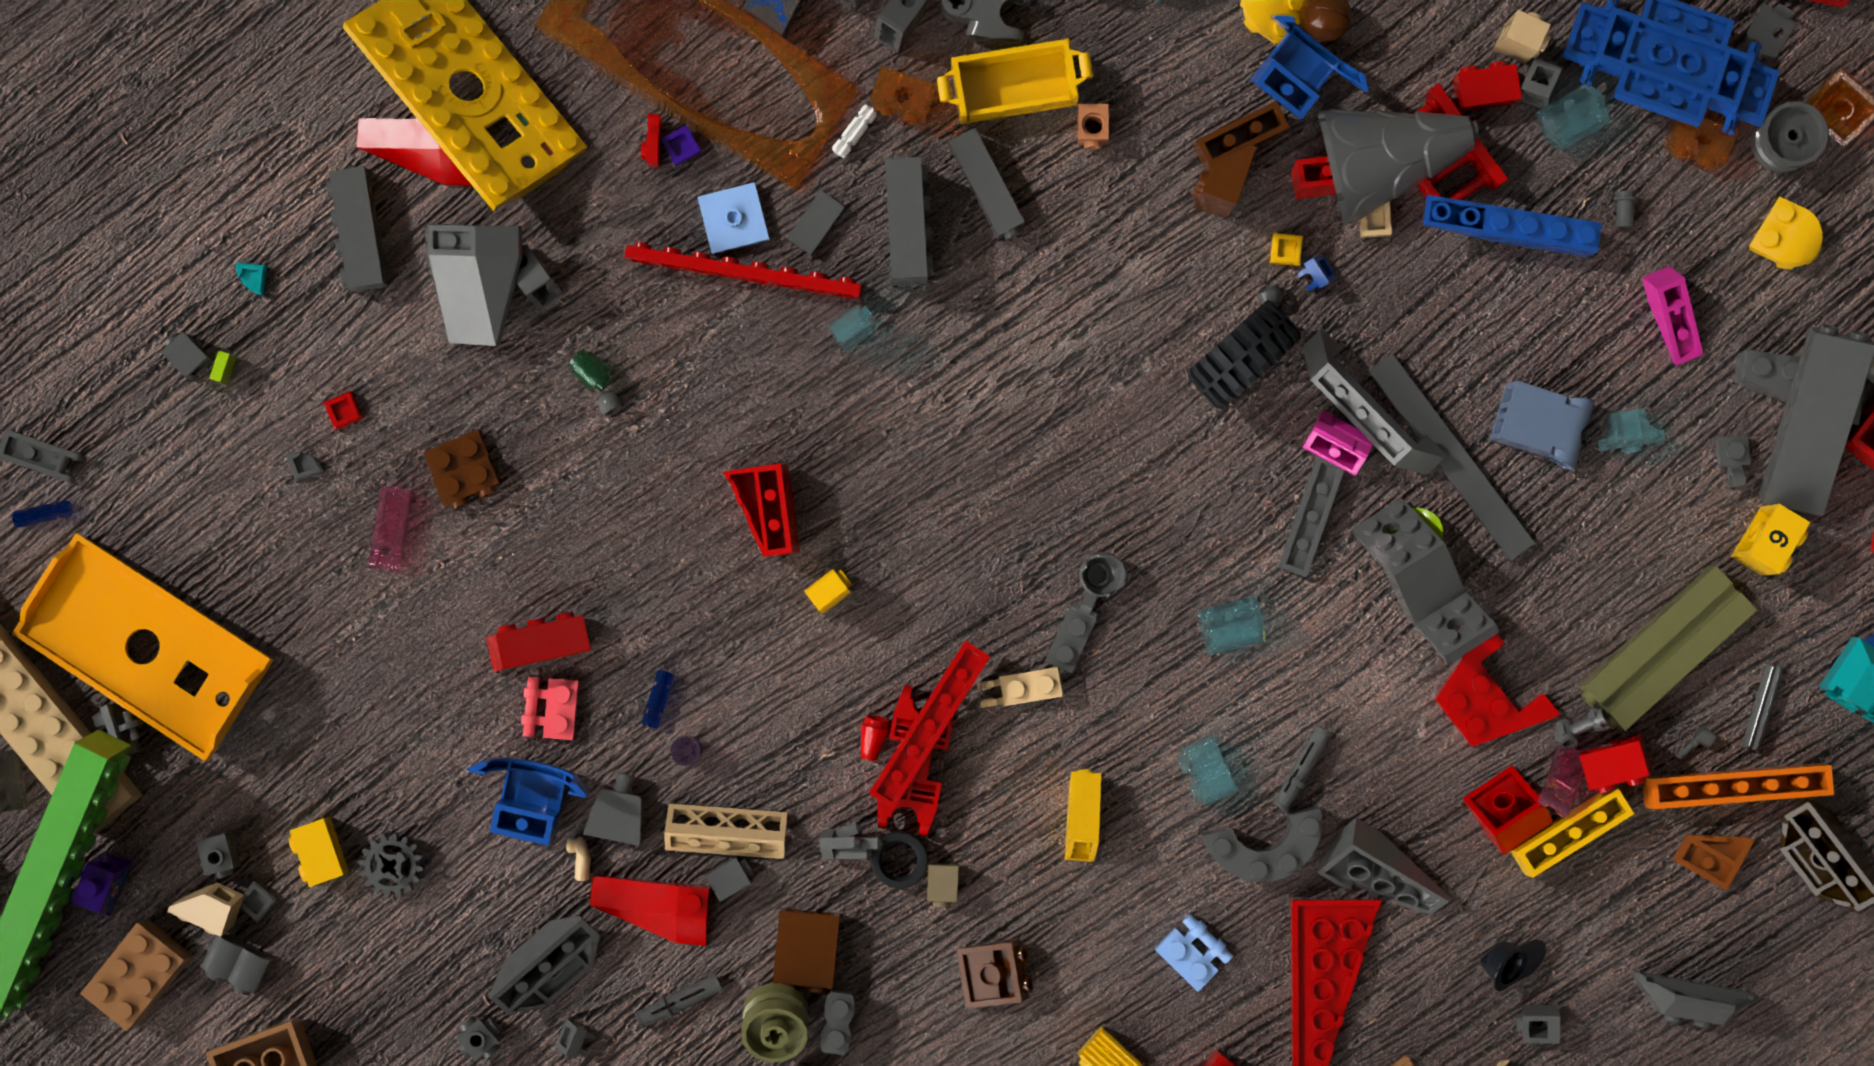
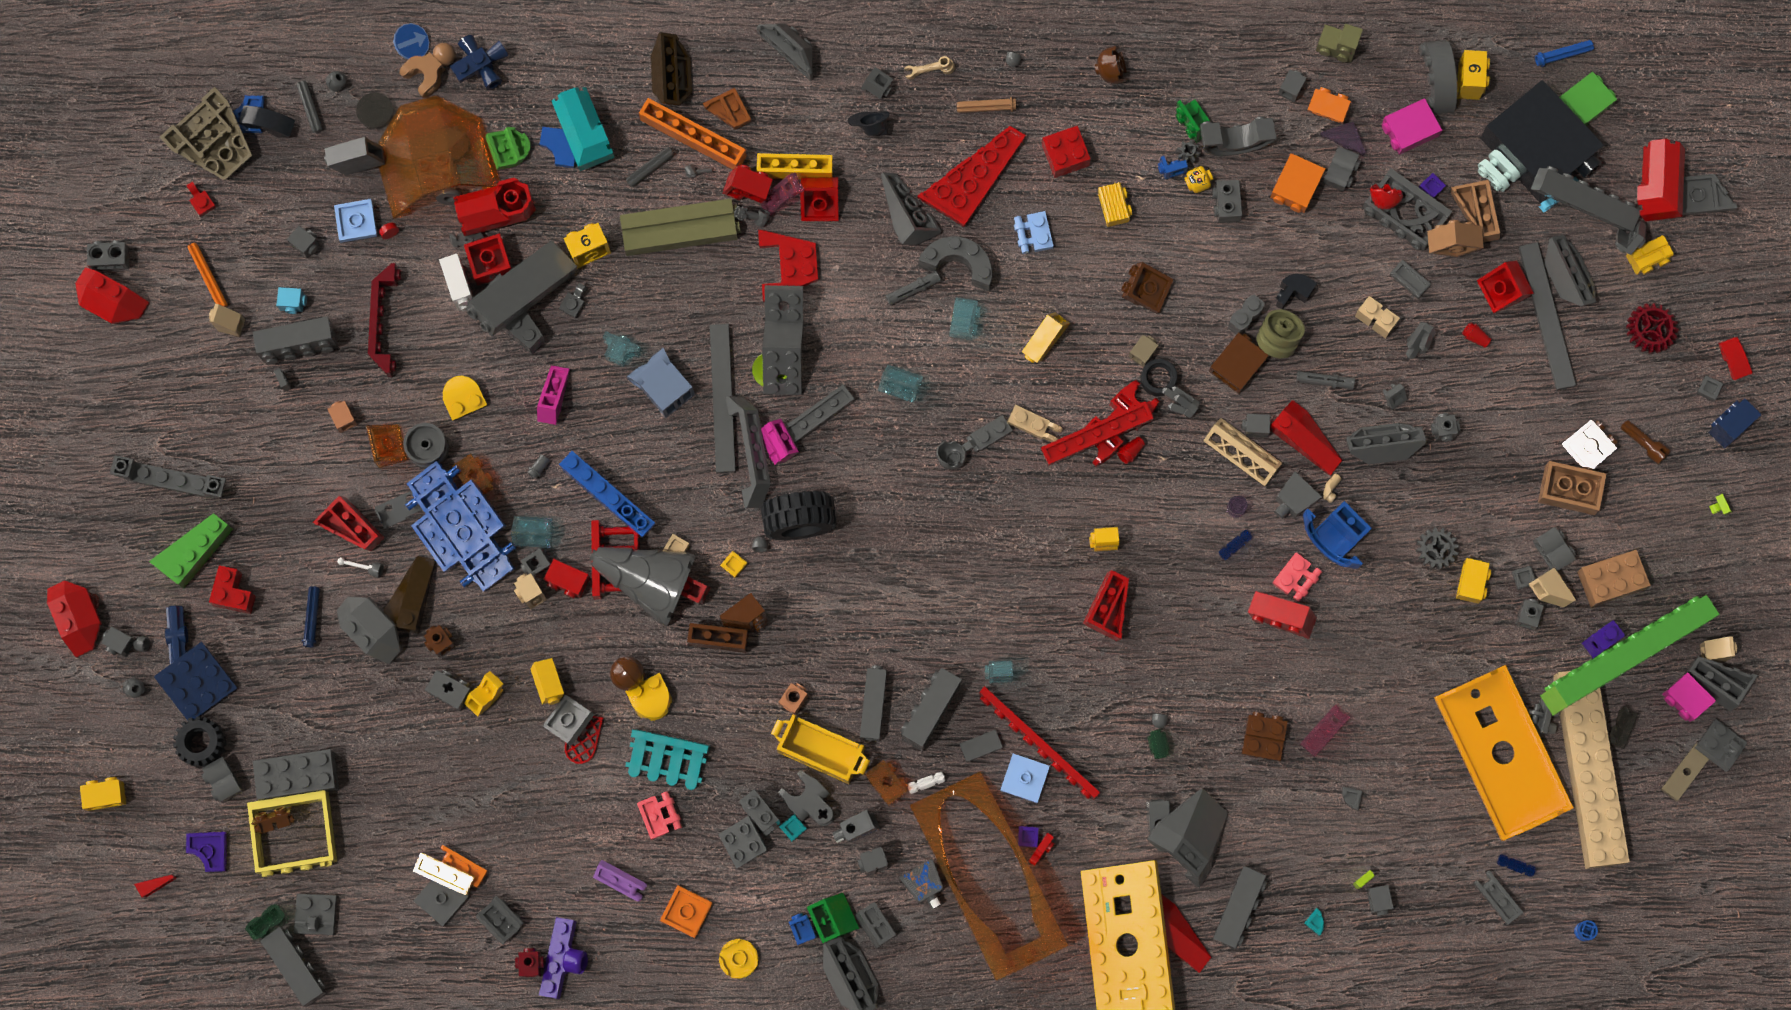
camera: 140 degrees left, 10 degrees down
(343, 410) = (1310, 813): red tile -> none
(1300, 68) = (663, 653): blue piece -> none
(1320, 270) = (724, 539): blue tile -> none

